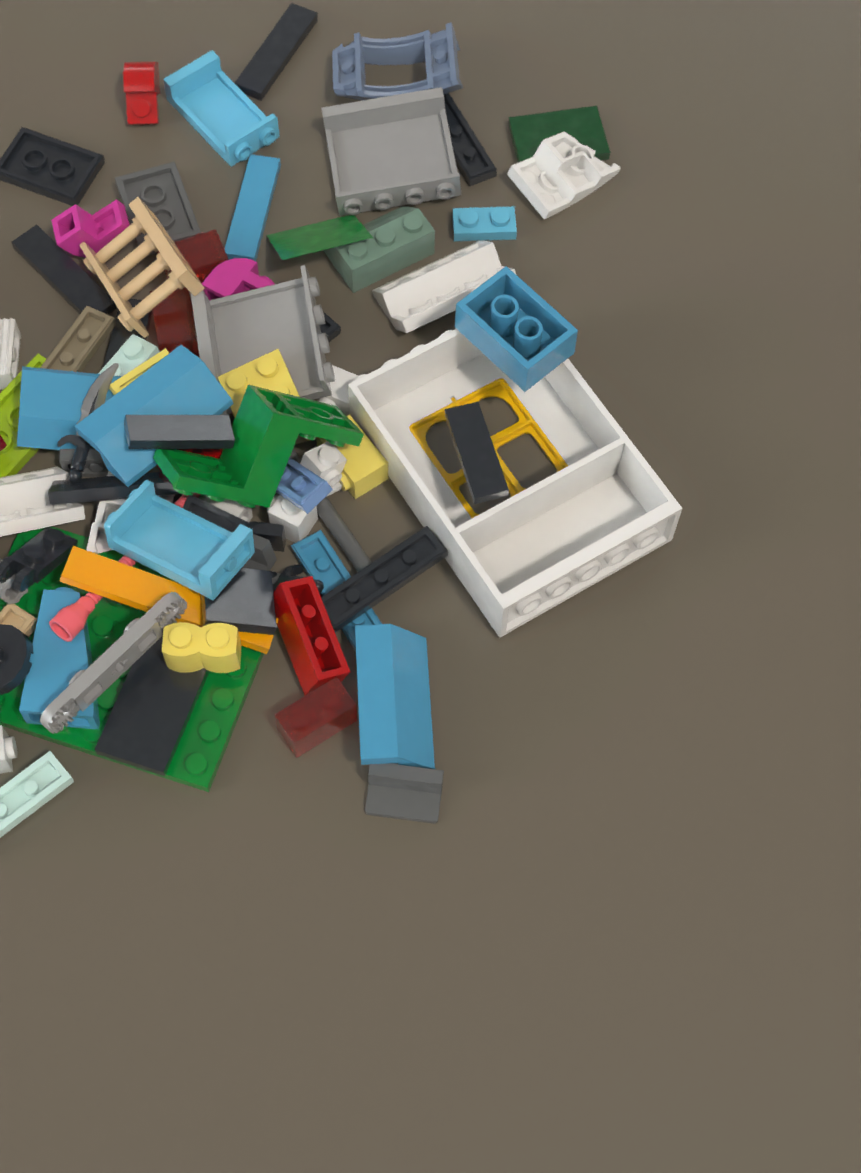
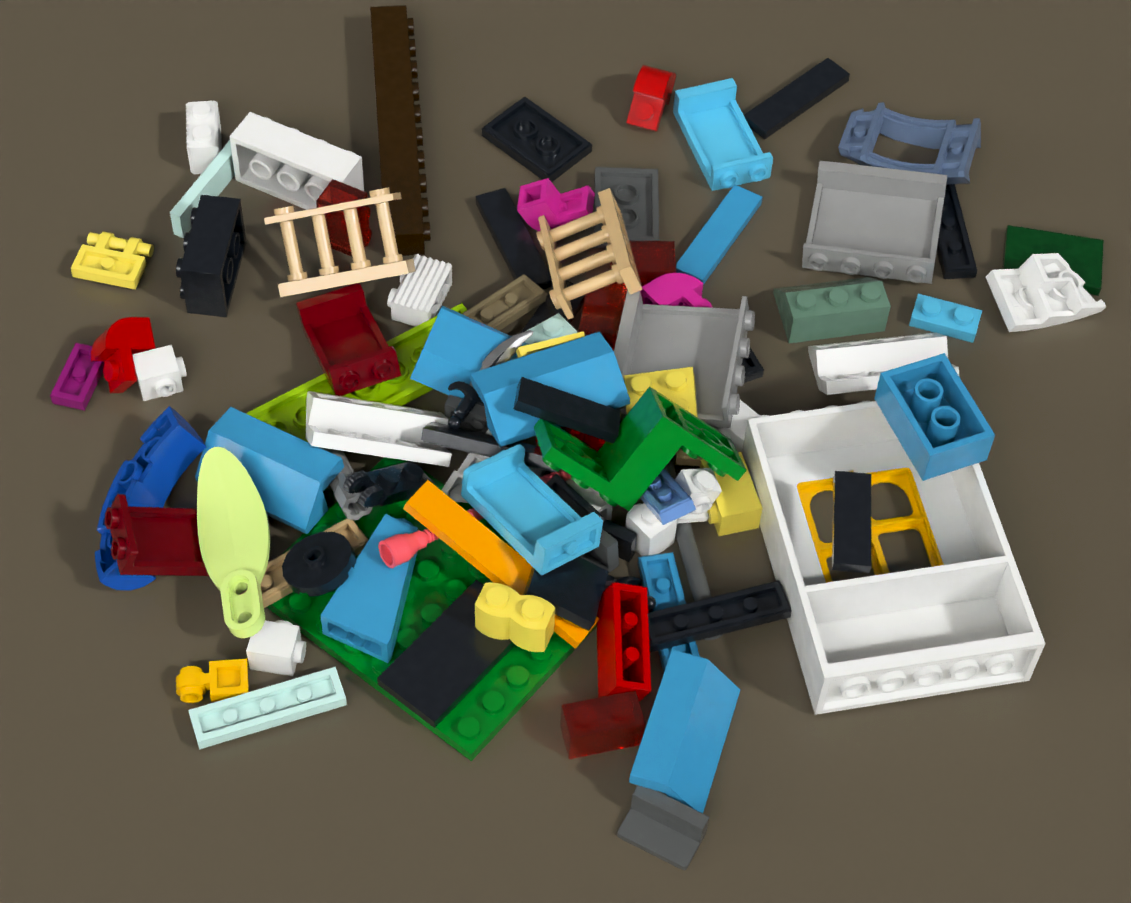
camera: 20 degrees right, 10 degrees down
(92, 682) = (425, 599): light grey piece -> none
(318, 236) = (773, 278): green sticker -> none

